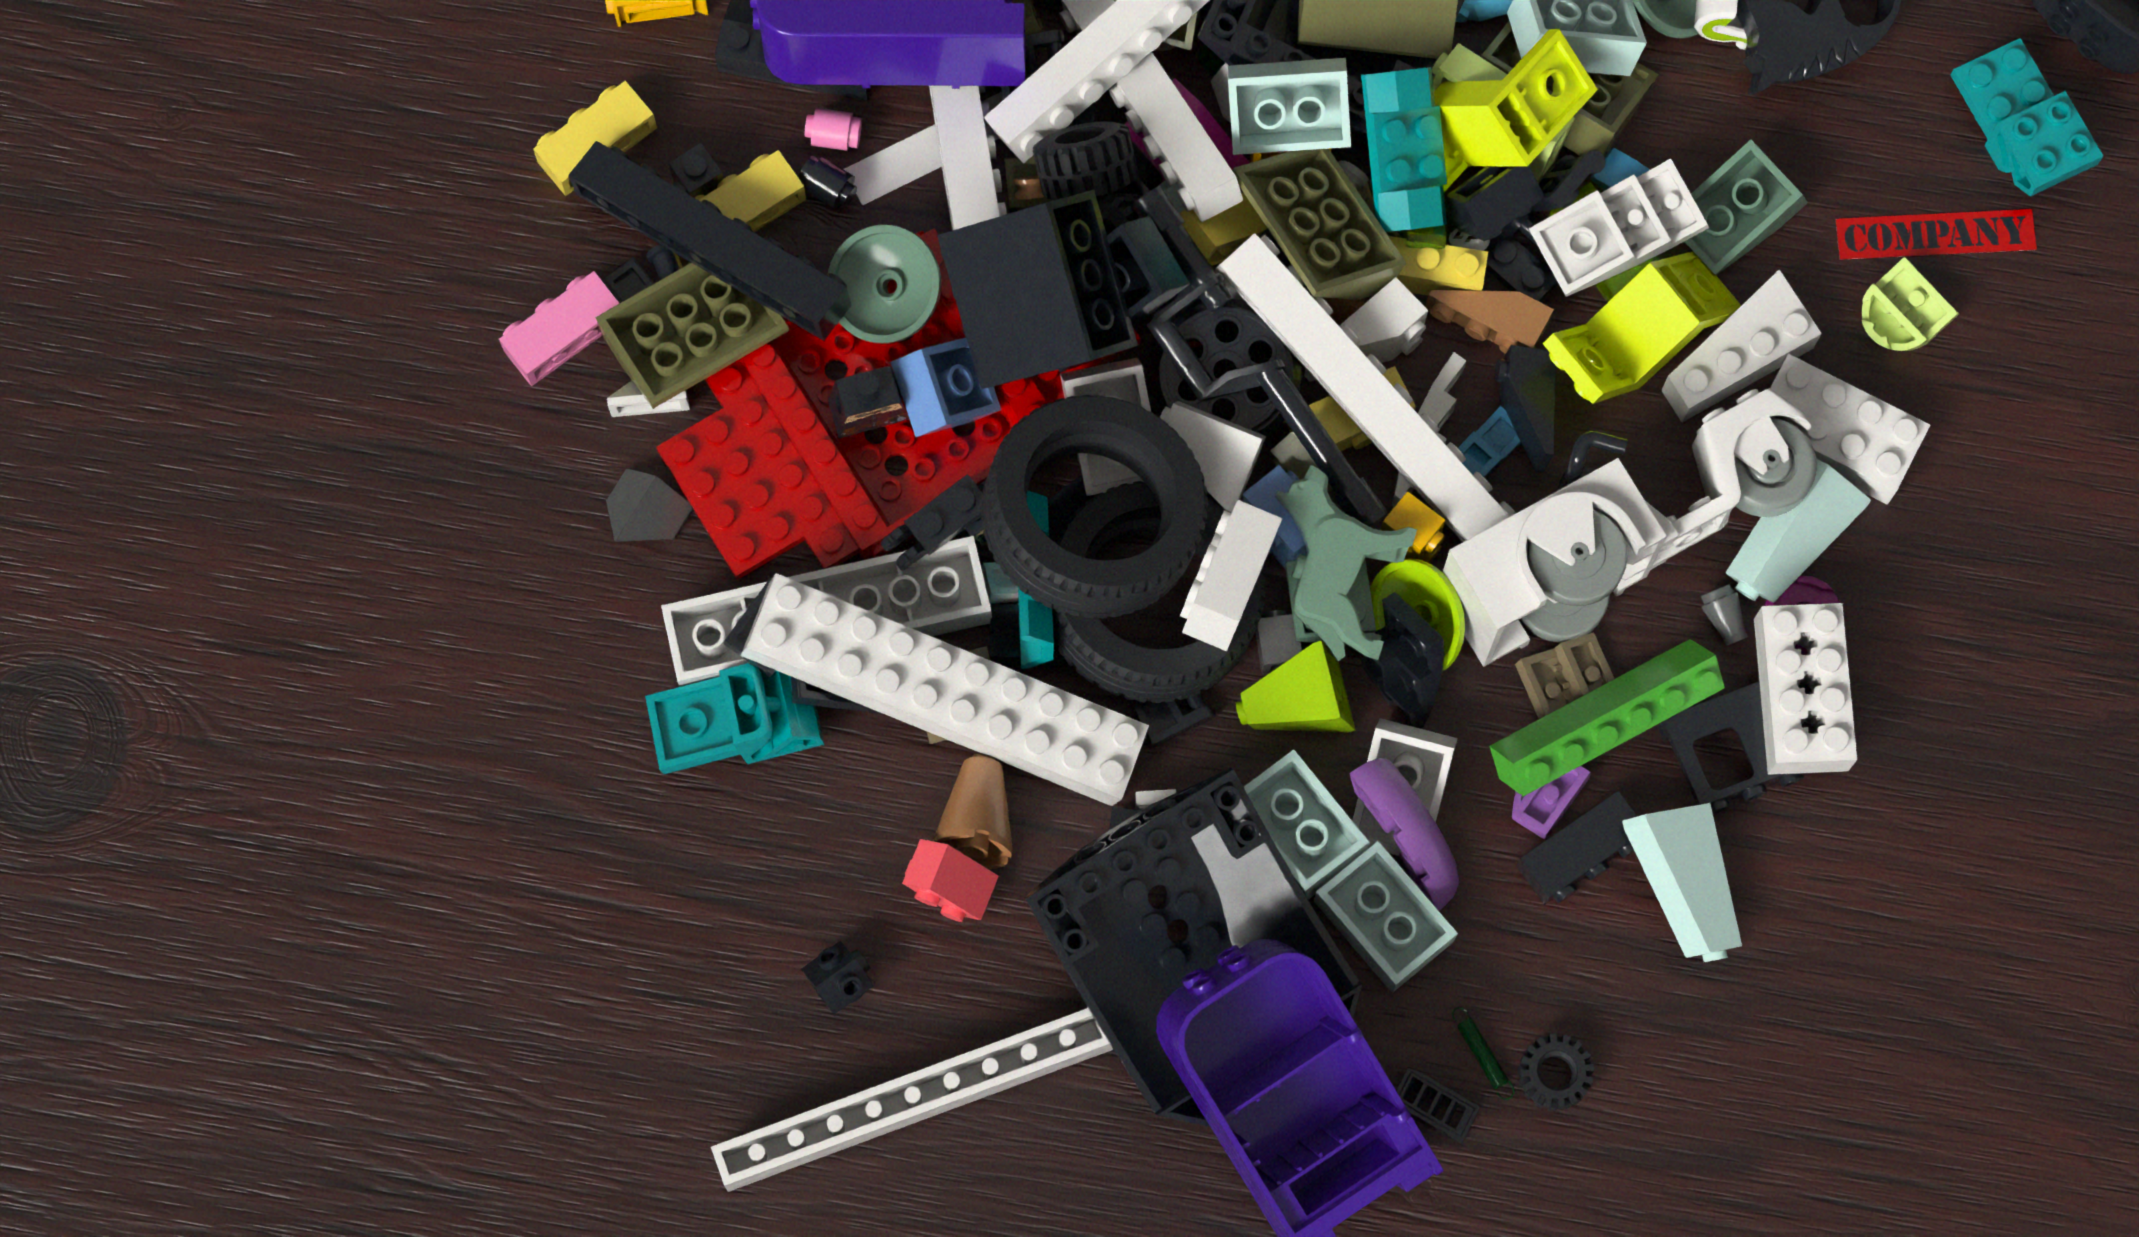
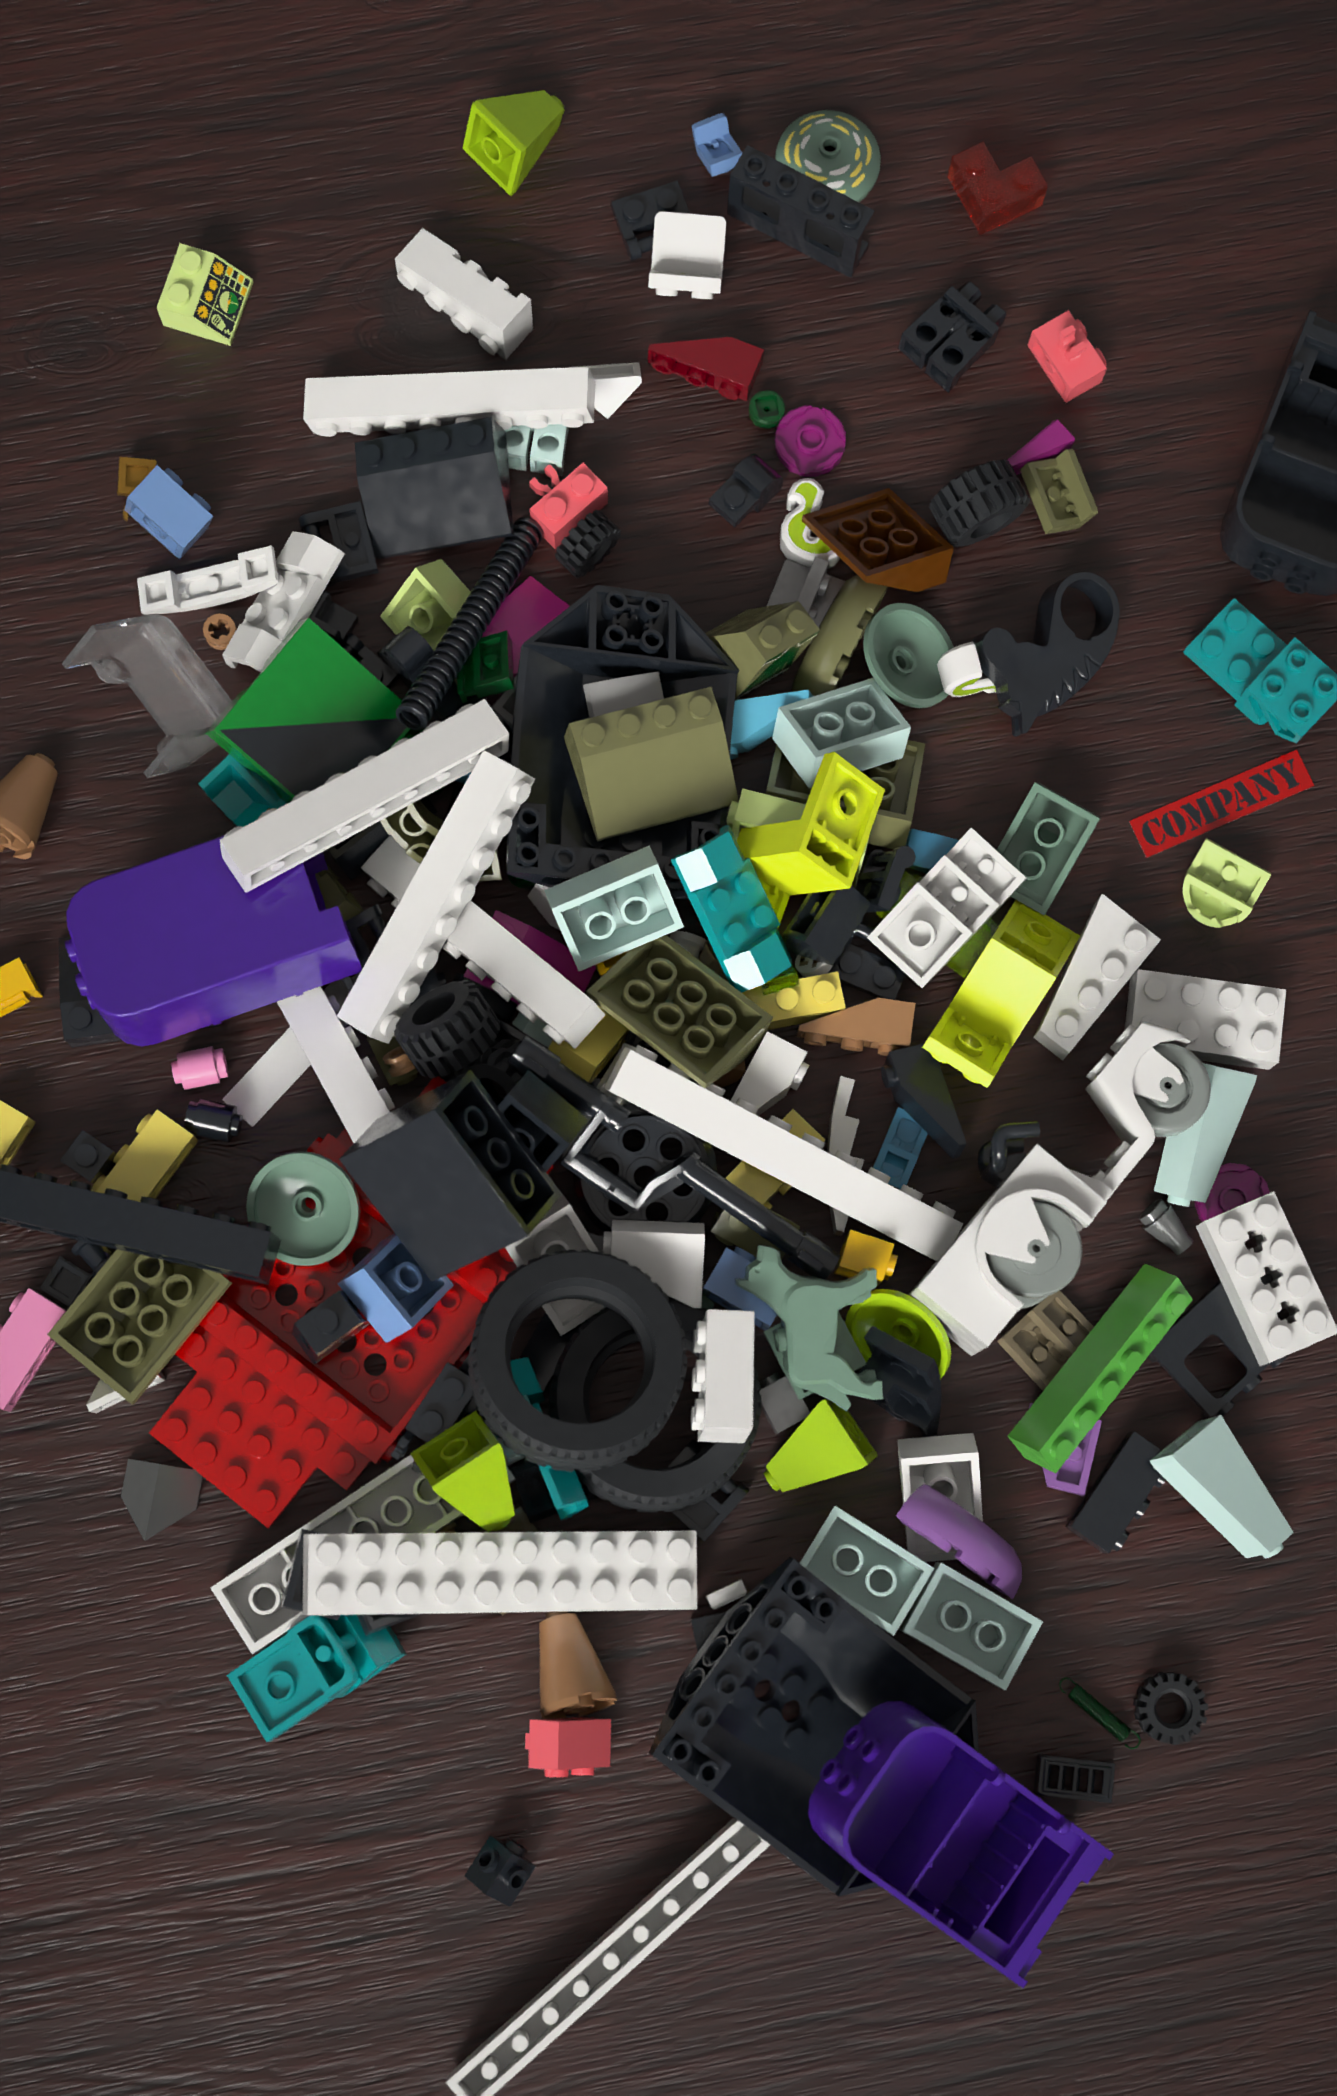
camera: 25 degrees left, 5 degrees up
(952, 581) = (469, 1472): none -> lime slope

